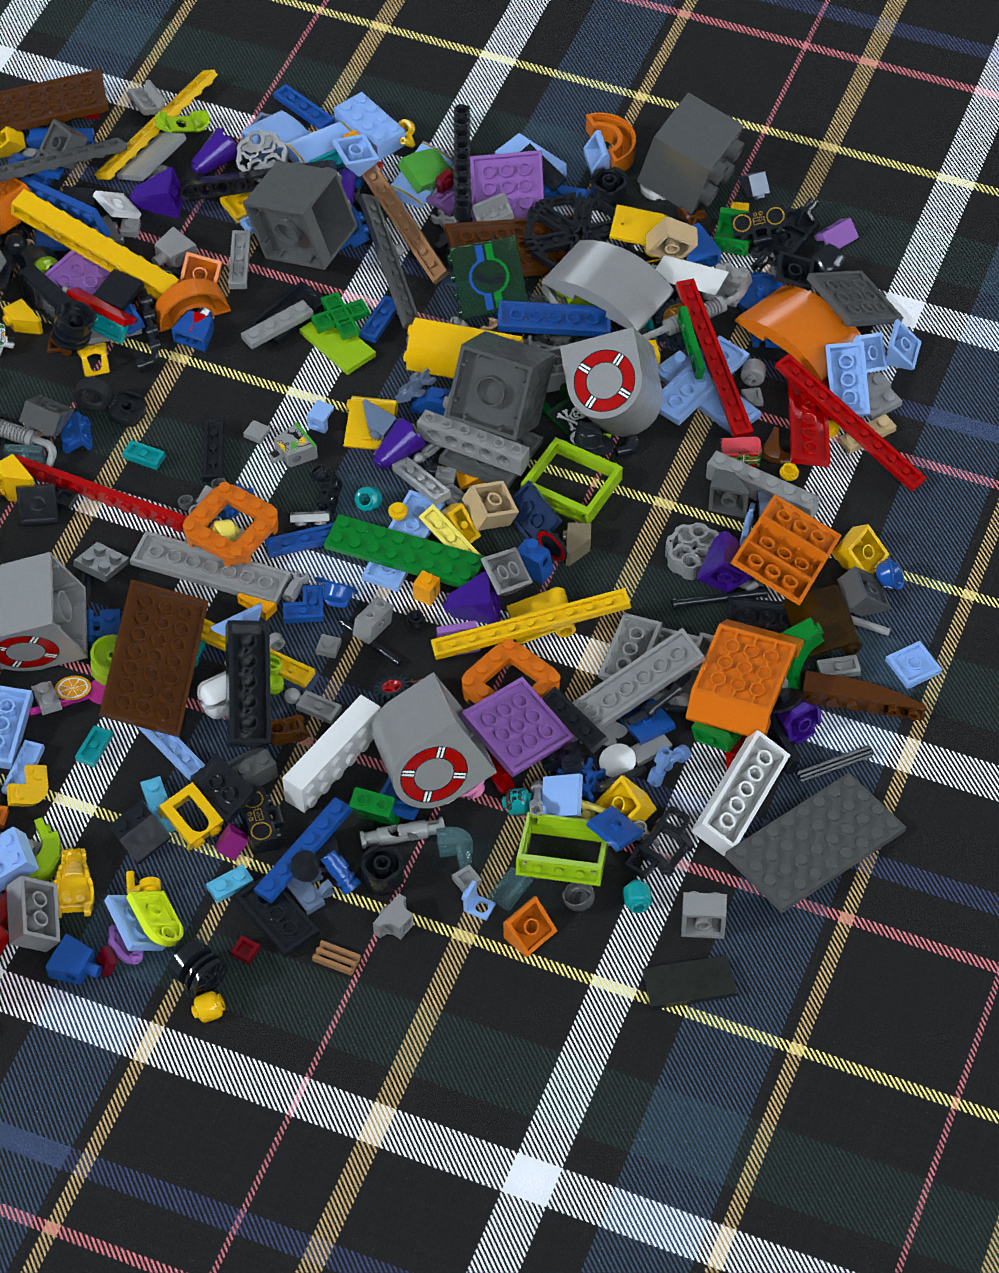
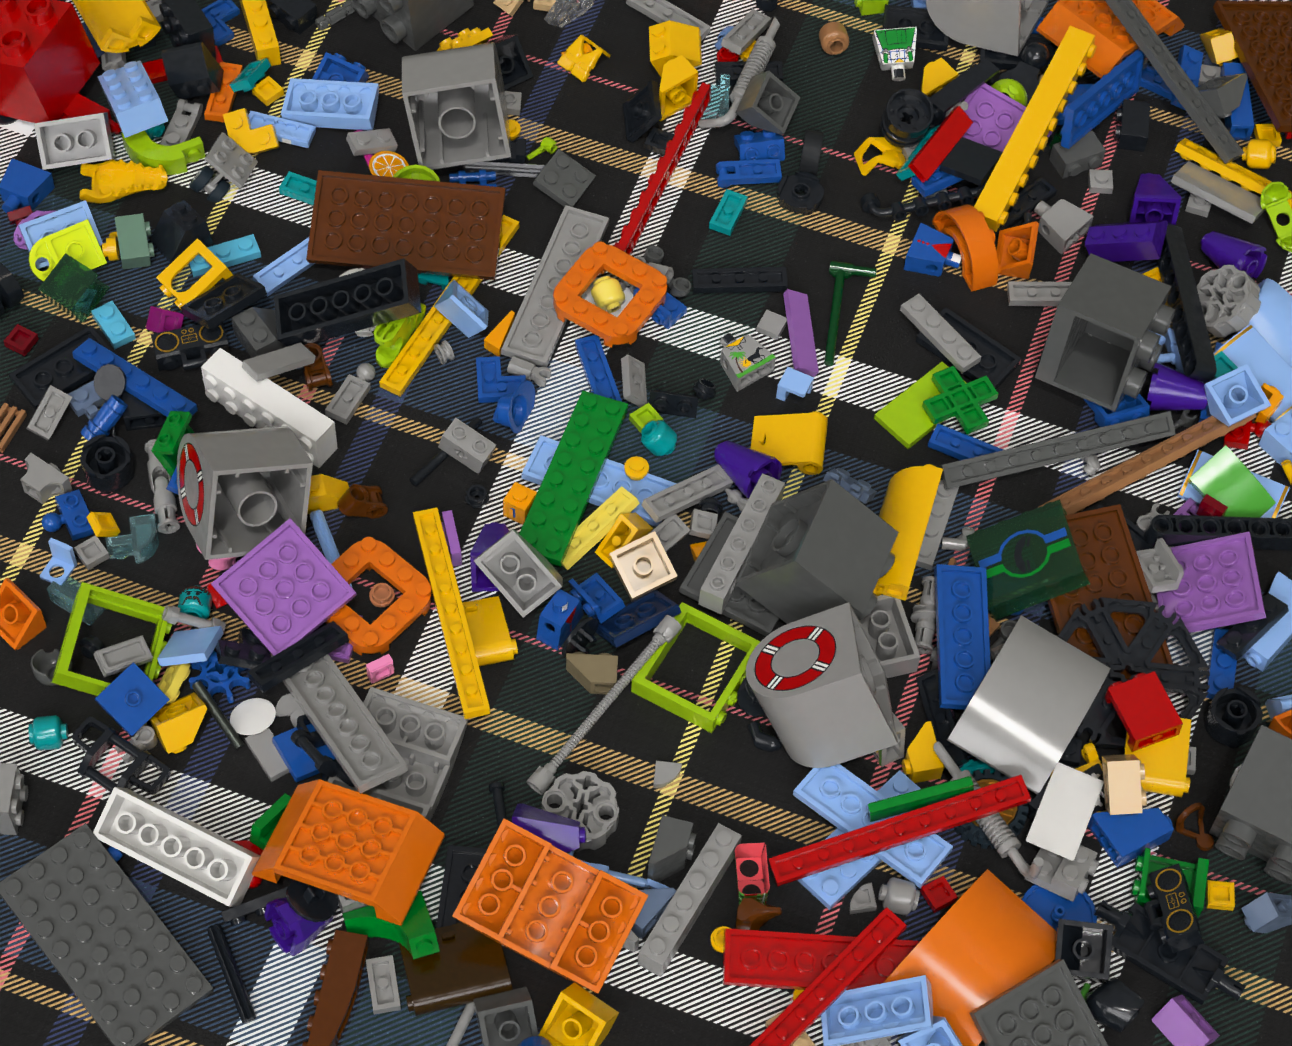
camera: 85 degrees right, 5 degrees up
(71, 799) = (230, 162): none -> light grey plate
(98, 124) = (1268, 131): none -> yellow plate
(102, 440) = (748, 172): none -> blue plate
(116, 129) = (1259, 154): none -> yellow head
(117, 204) = (1127, 159): white tile -> none
(145, 864) = (133, 242): none -> sand green brick
(197, 208) = (1127, 240): none -> dark purple slope
(198, 904) = (73, 288): none -> clear green piece
(207, 387) = (840, 271): none -> dark green bar
(267, 412) = (800, 332): none -> medium lavender tile
(296, 738) = (278, 361): none -> light grey tile
(327, 918) = (49, 412): none -> light grey plate
(328, 646) = (441, 408): light grey plate -> none
(346, 508) = (644, 415): none -> lime plate
(378, 420) = (780, 438): sand blue slope -> none
(390, 688) = (360, 468): black wheel -> none
(429, 897) = (72, 514): none -> blue plate
(439, 871) = (103, 524): none -> yellow tile
(505, 678) = (382, 595): none -> nougat plate
(513, 536) = (597, 597): none -> blue bracket
(576, 676) = (380, 668): none -> bright pink tile
(577, 834) = (121, 655): none -> light grey tile
(614, 222) = (1144, 710): none -> red panel
(658, 504) = (666, 773): none -> light grey tile
(665, 573) = (544, 776): none -> light grey hose
(665, 759) = (226, 757): medium blue bar -> none
(753, 351) = (938, 894): none -> red plate

